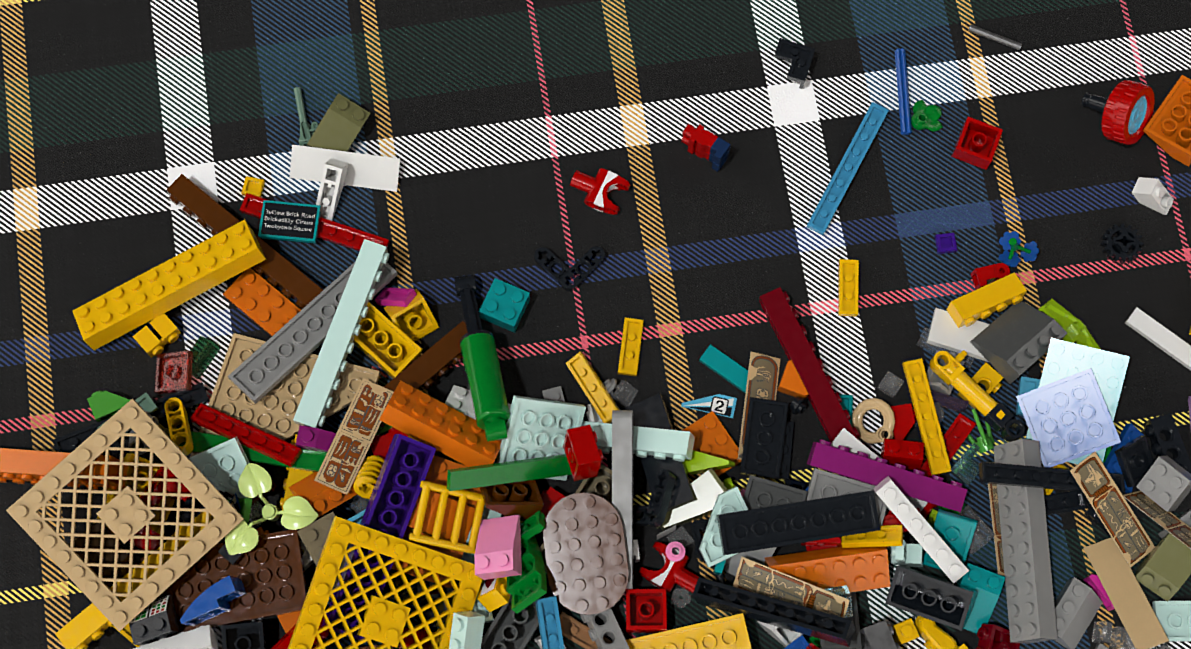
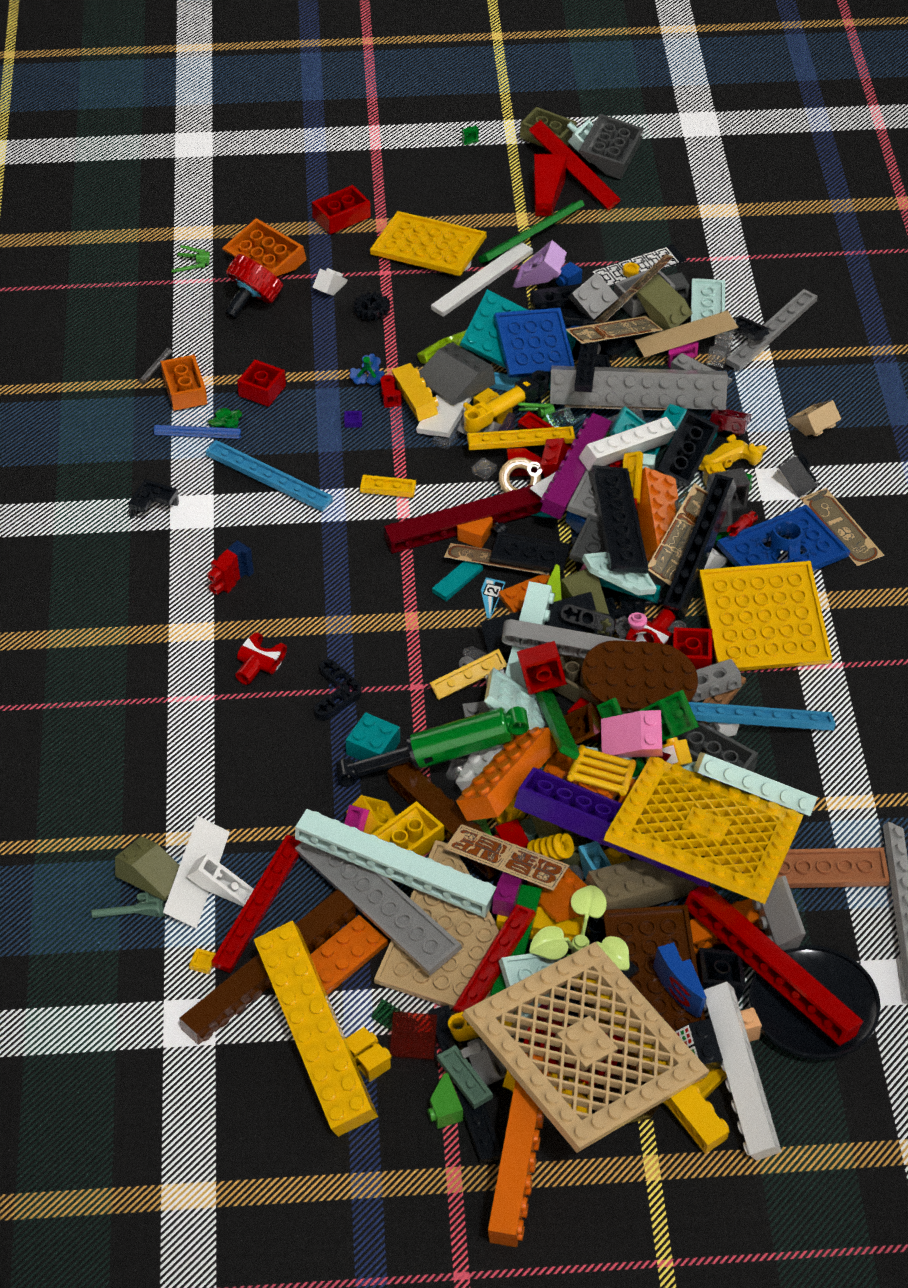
camera: 80 degrees left, 25 degrees down
(289, 221) = (252, 917): black tile -> none
(630, 347) = (426, 649): yellow tile -> none
(965, 66) = (184, 382): none -> orange brick
(1170, 57) = (202, 257): none -> bright green plant

